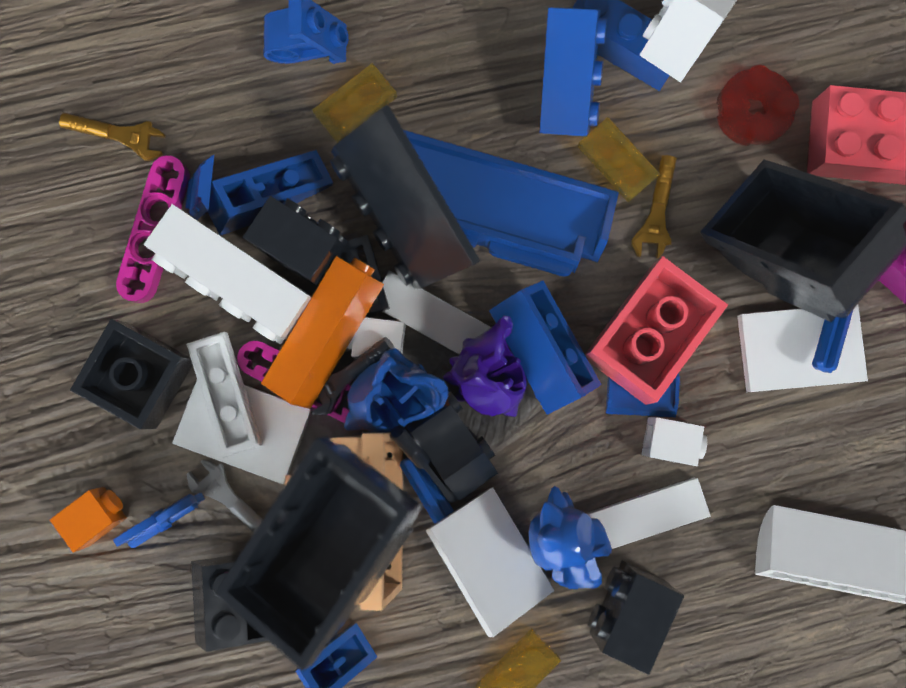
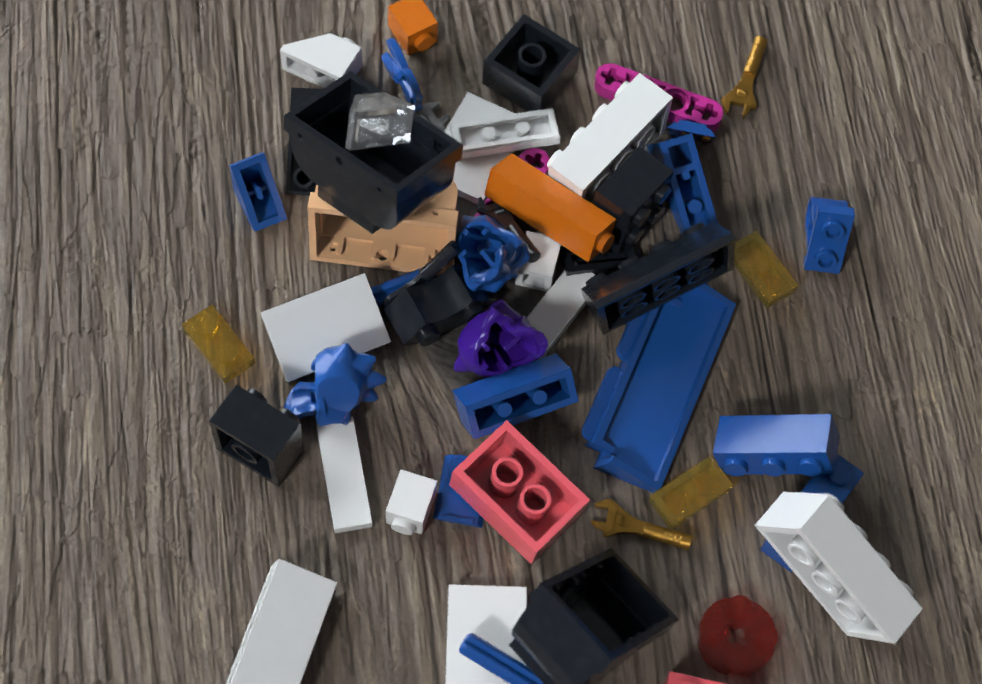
camera: 90 degrees right, 20 degrees down
(151, 613) = (321, 58): none -> white slope
(303, 552) = (378, 121): none -> clear slope

